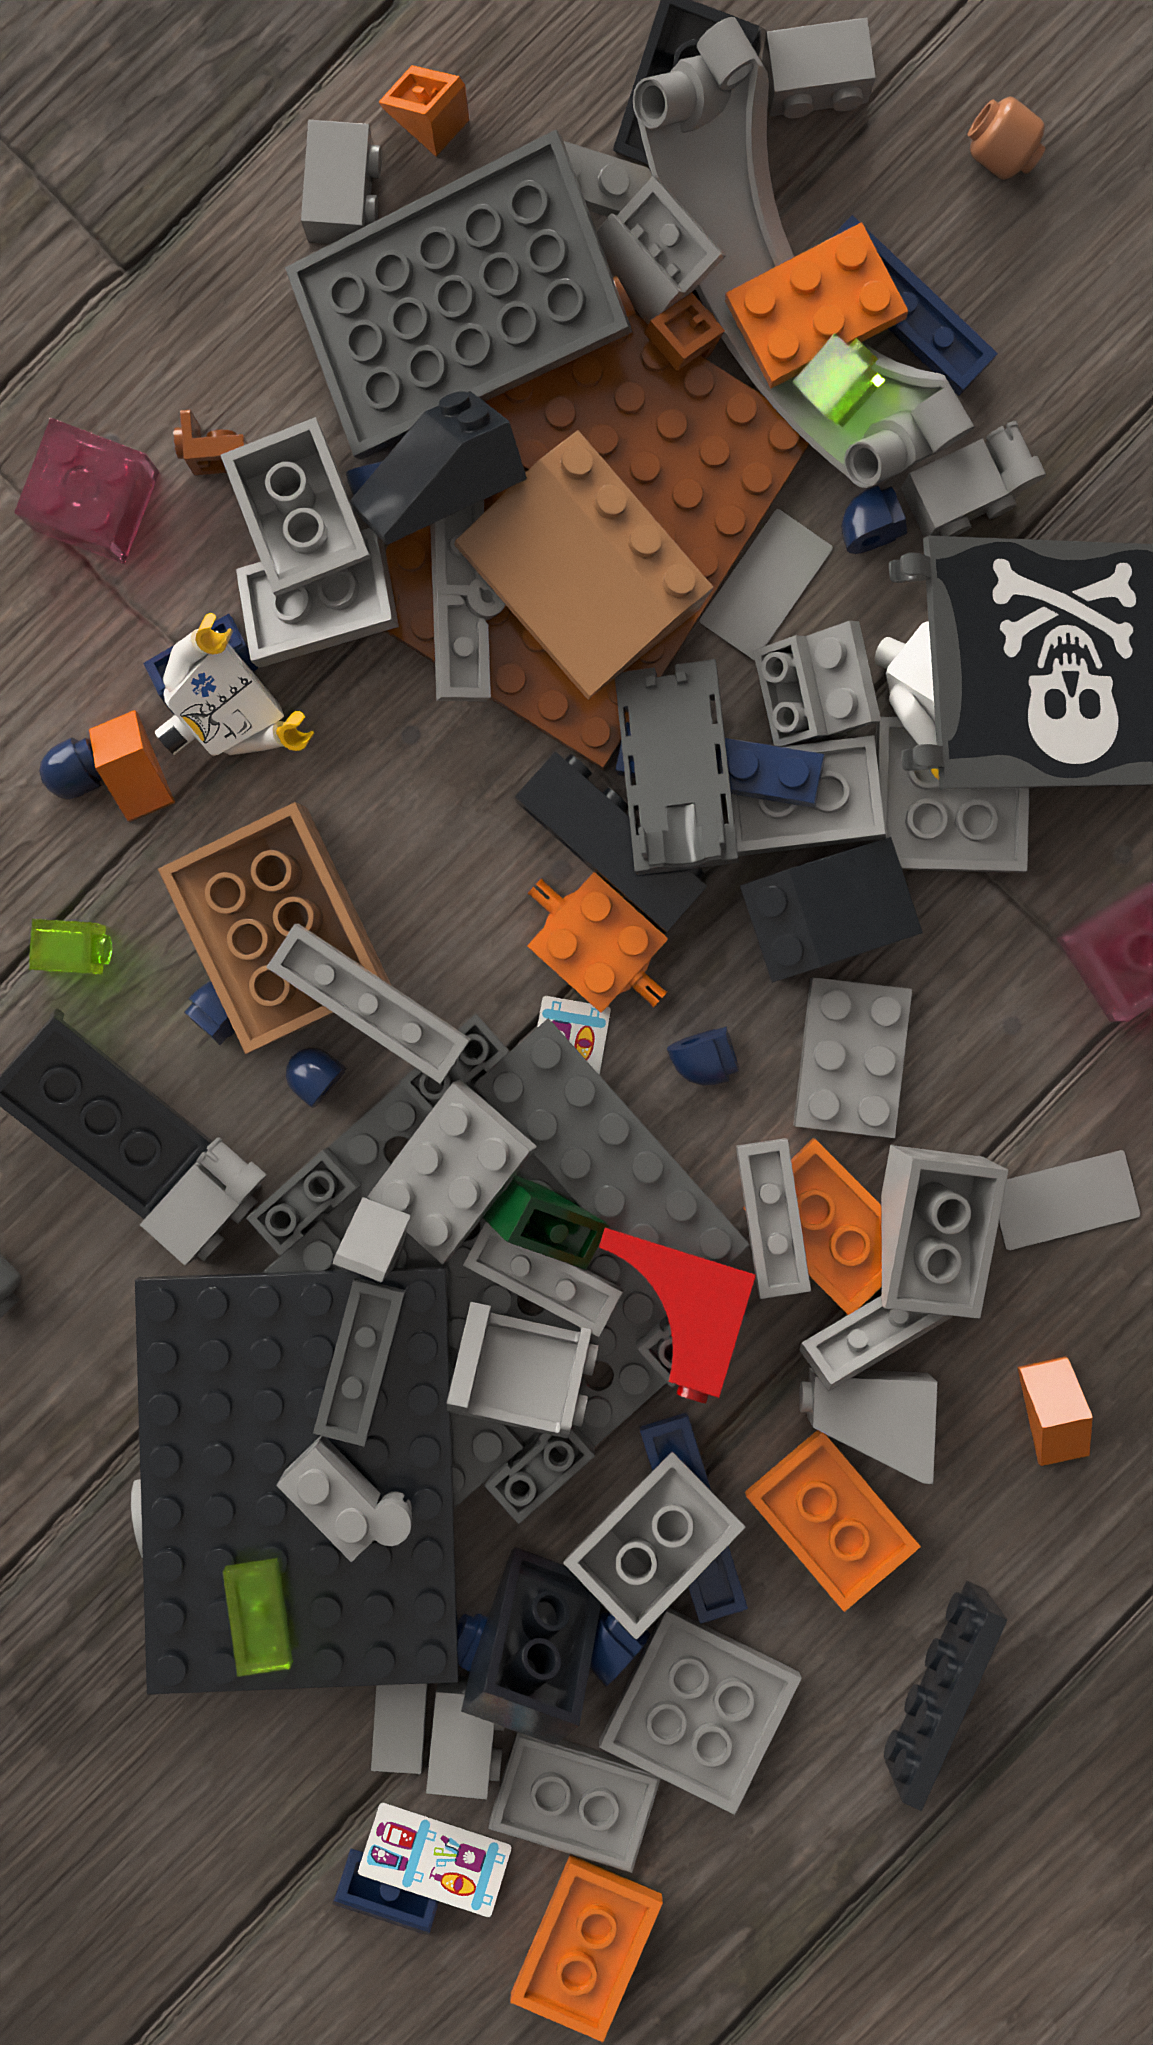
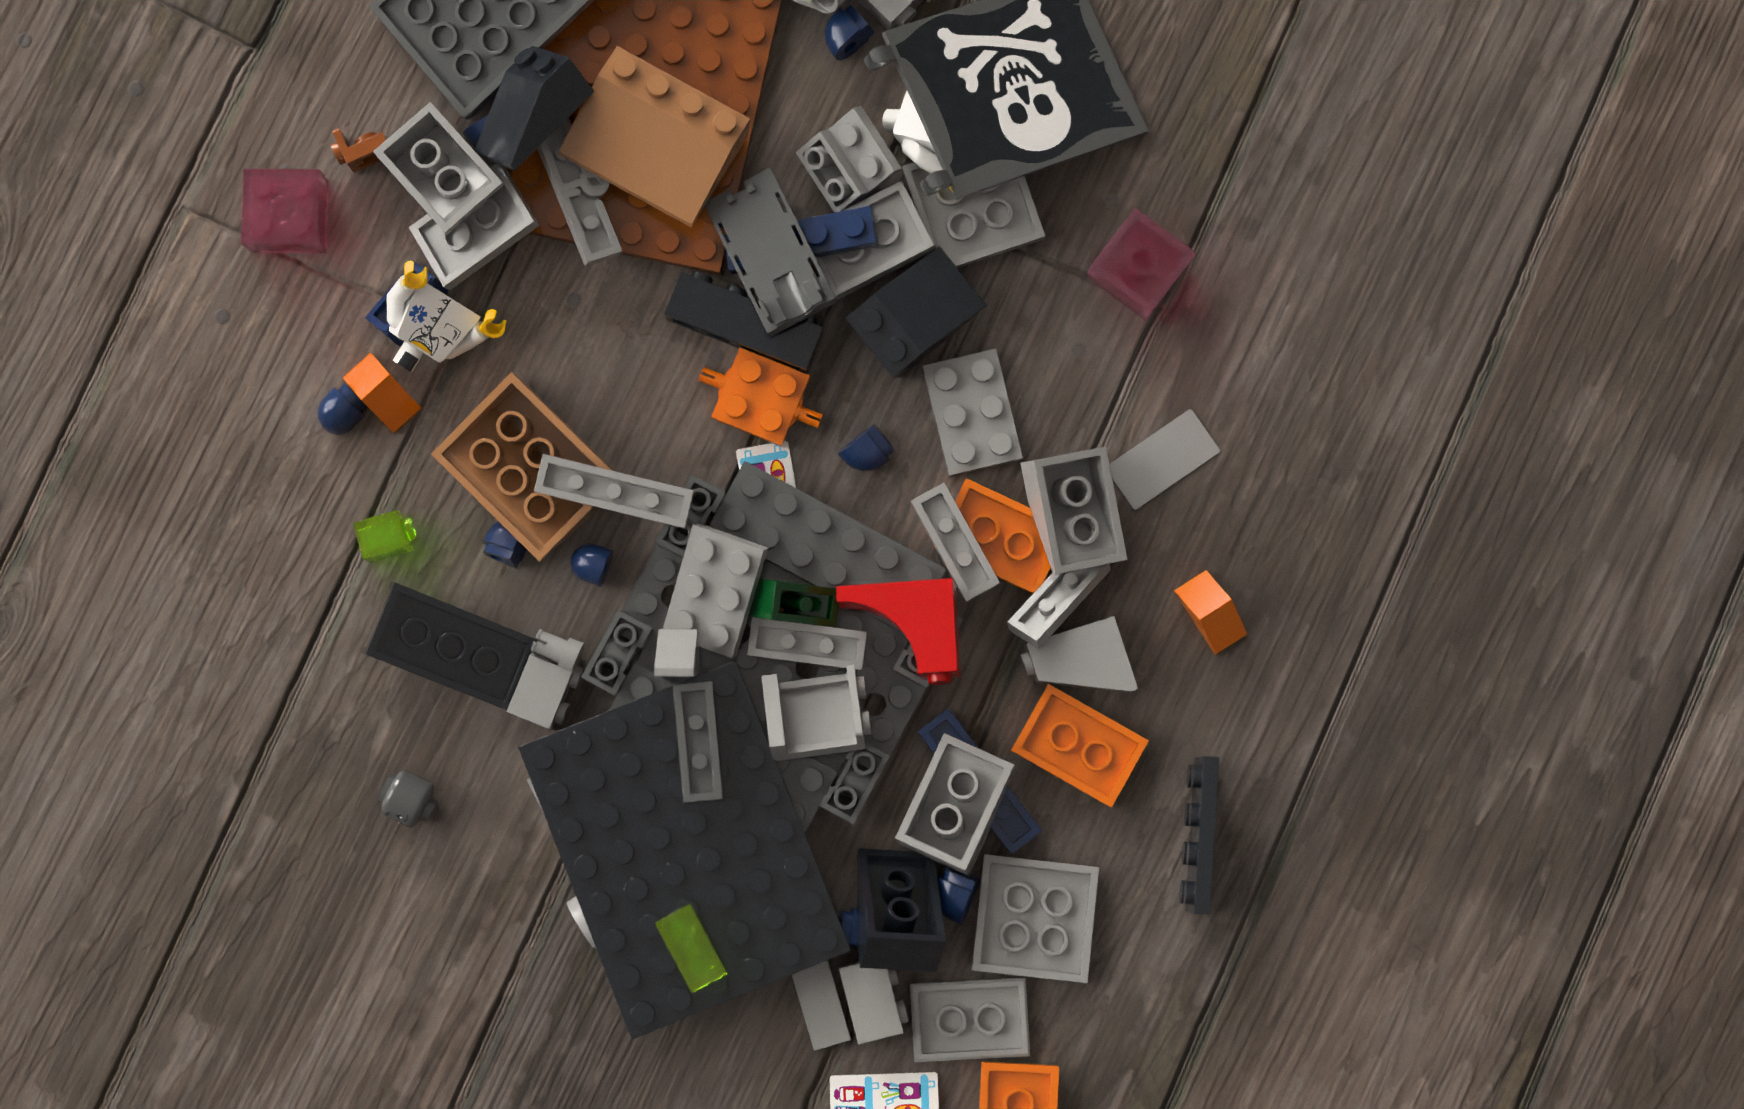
camera: 25 degrees left, 5 degrees down
(344, 1501) = (722, 842): light grey hinge -> none
(766, 583) = (788, 103): light grey sticker -> none

